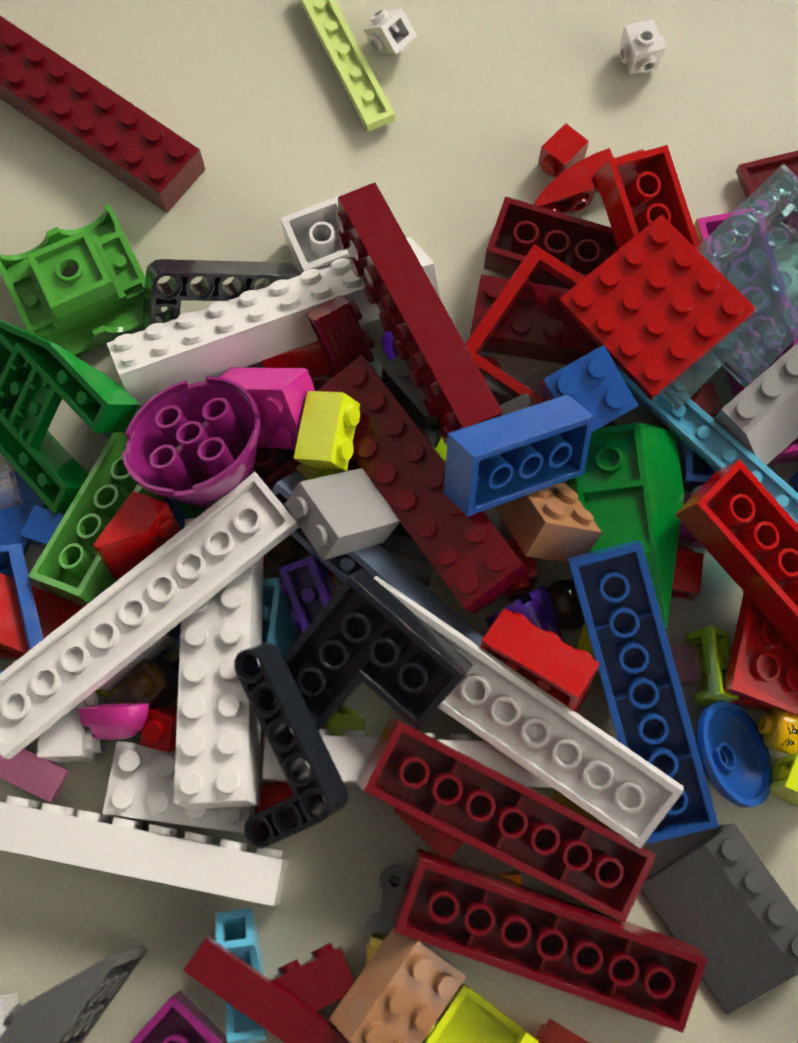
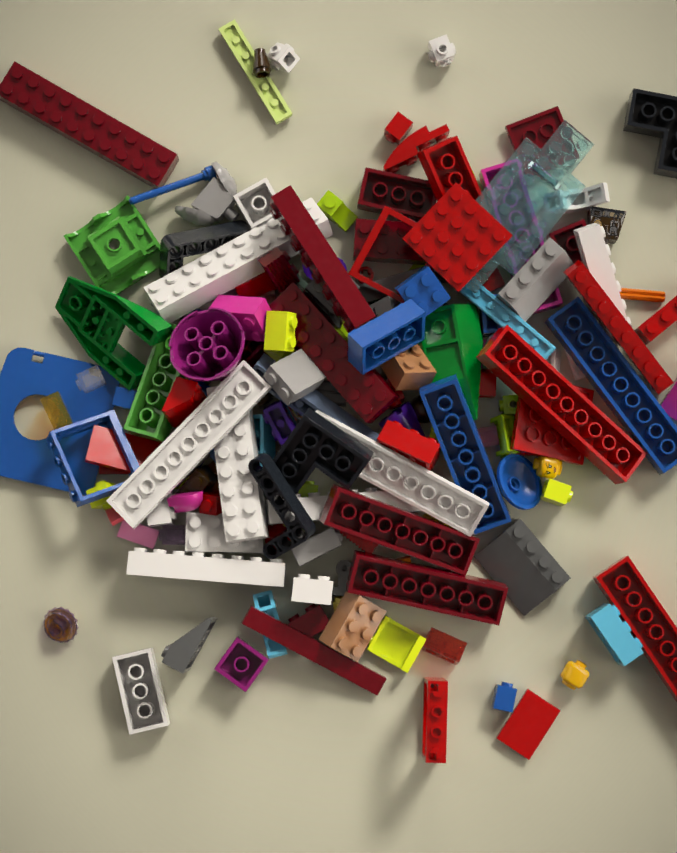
camera: 10 degrees left, 10 degrees up
(86, 780) = (172, 534): none -> brick
(244, 191) = (206, 175): none -> blue piece
(248, 229) = (214, 201): none -> light grey torso
(327, 919) = (312, 590): none -> white brick
(347, 833) = (317, 546): none -> light grey brick
(354, 36) = (261, 65): none -> dark brown cone
(451, 266) = (337, 211): none -> lime arch
(713, 612) = (504, 404): none -> lime brick

